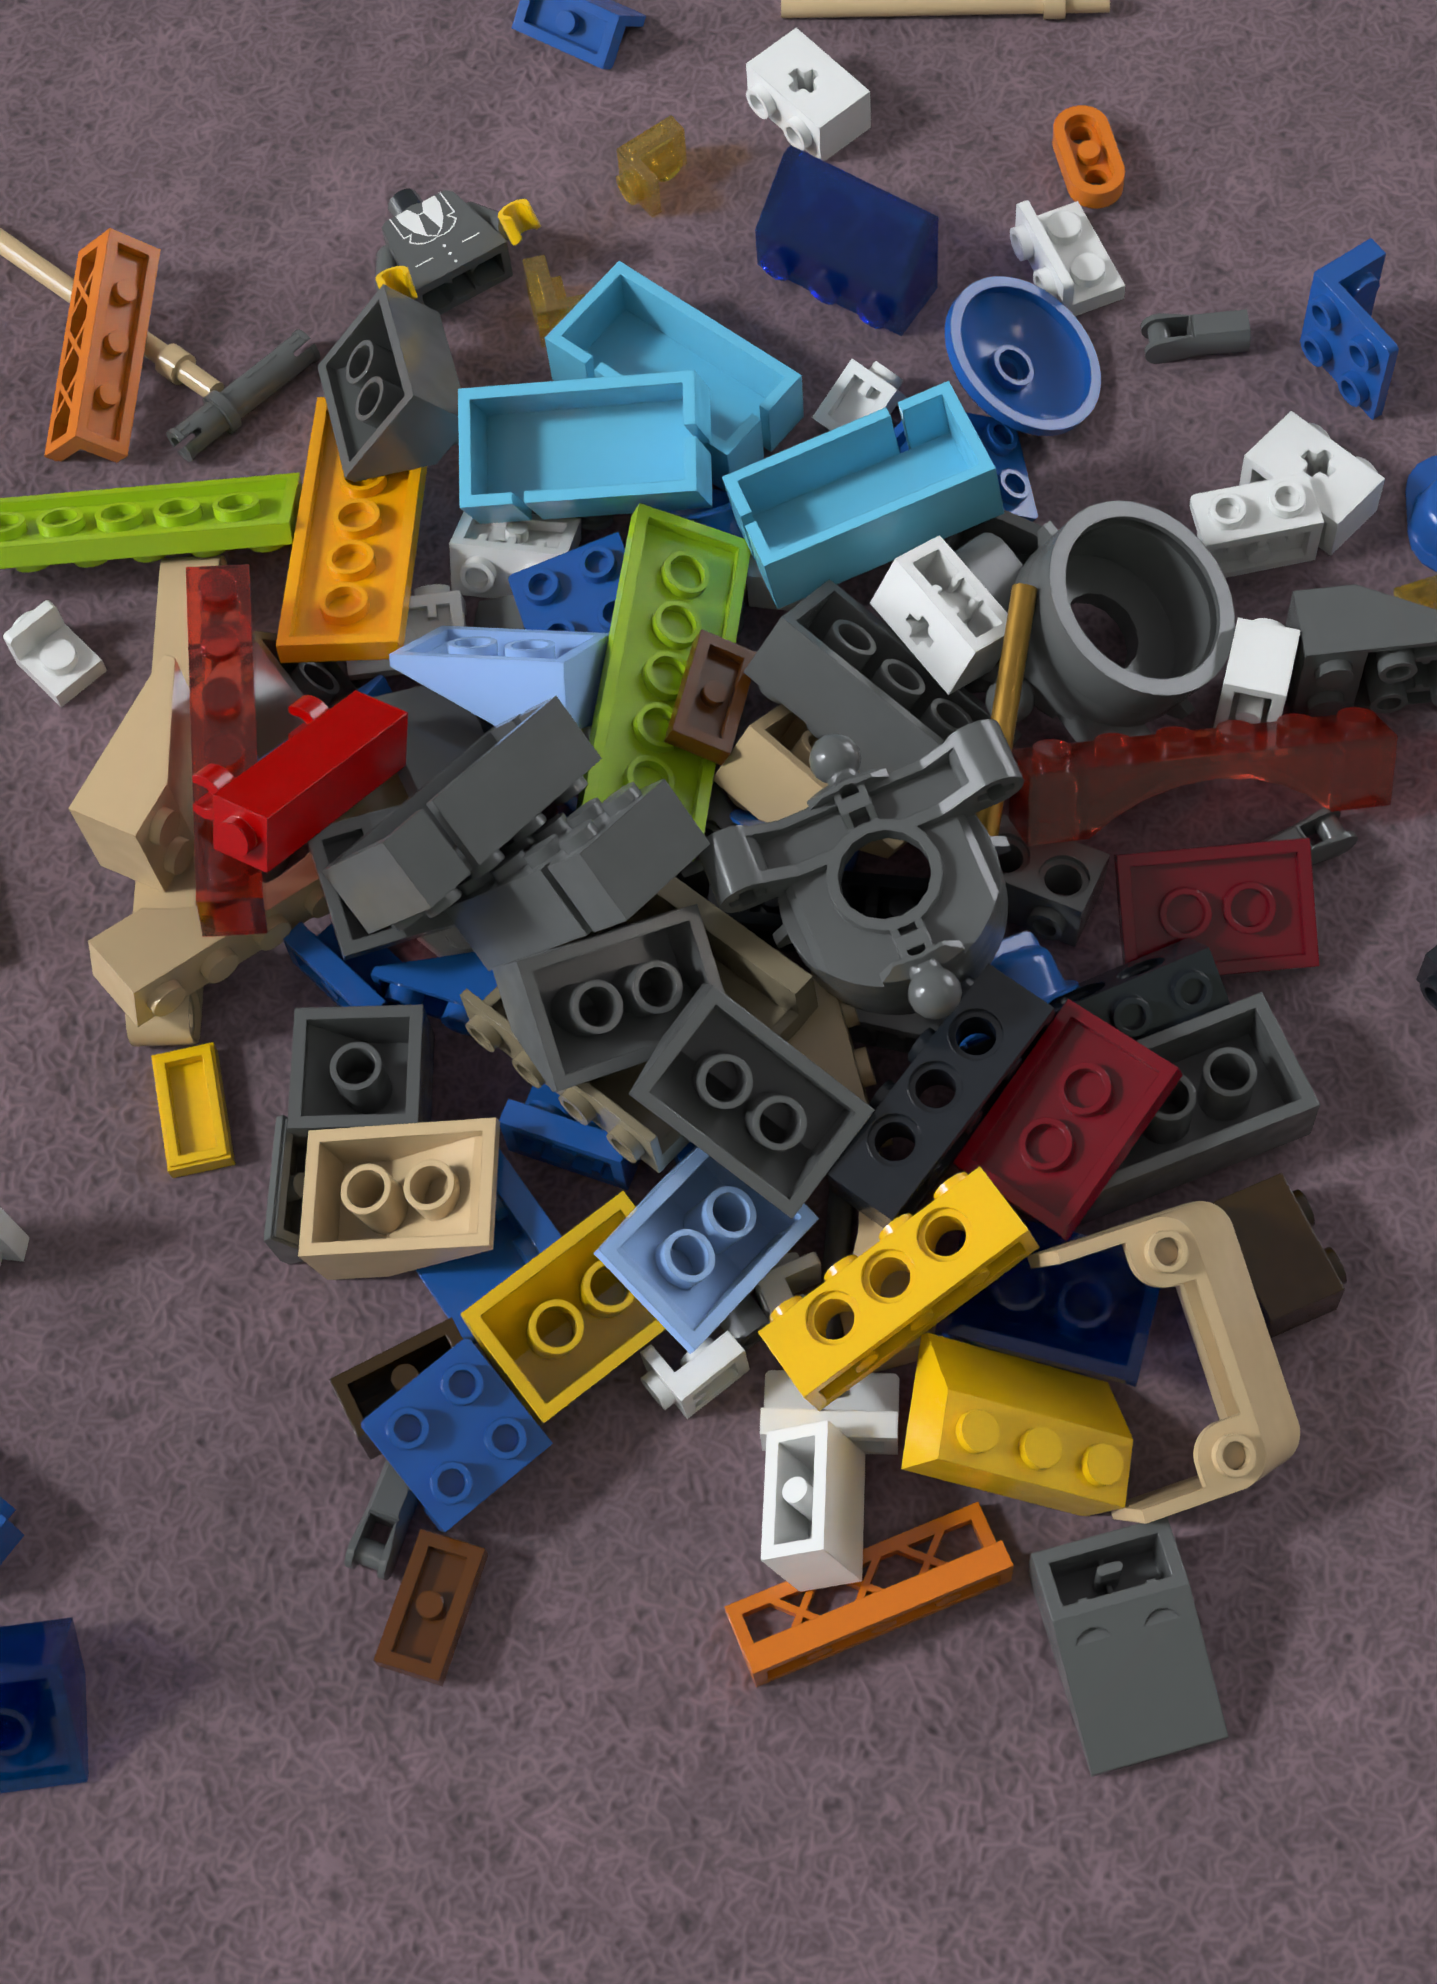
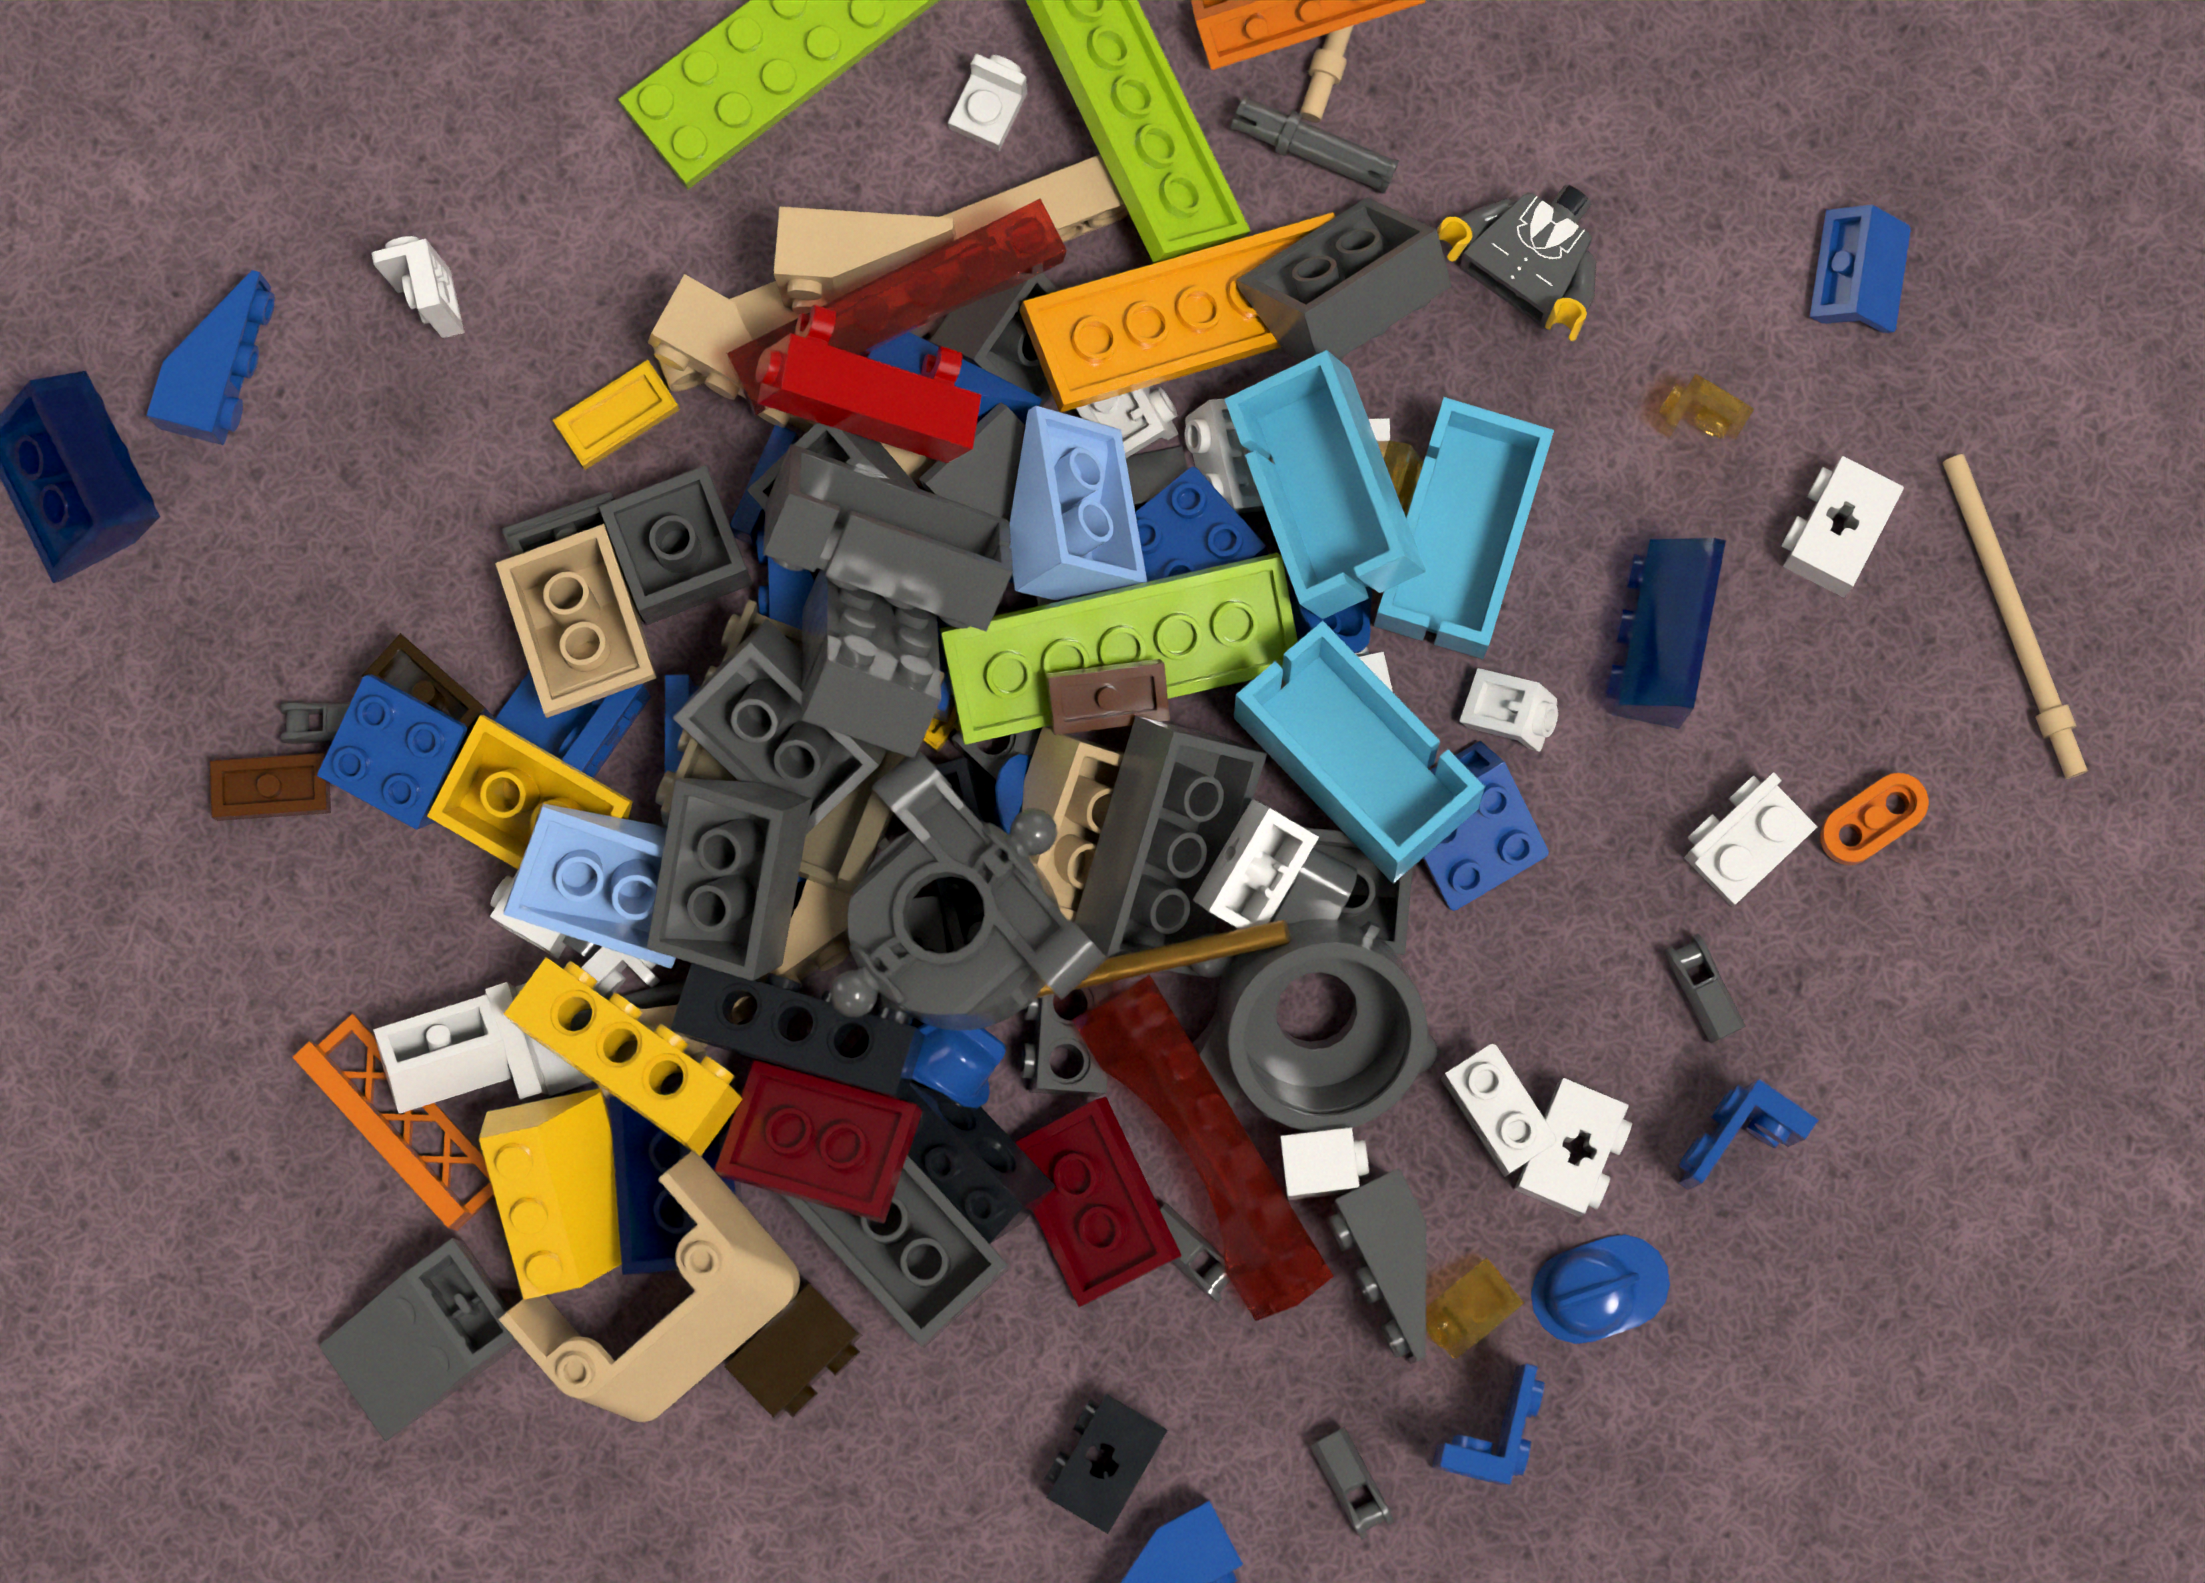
camera: 65 degrees right, 15 degrees up
(546, 296) = (1515, 374): clear yellow bracket -> none
(1022, 356) = (1618, 863): blue dish -> none

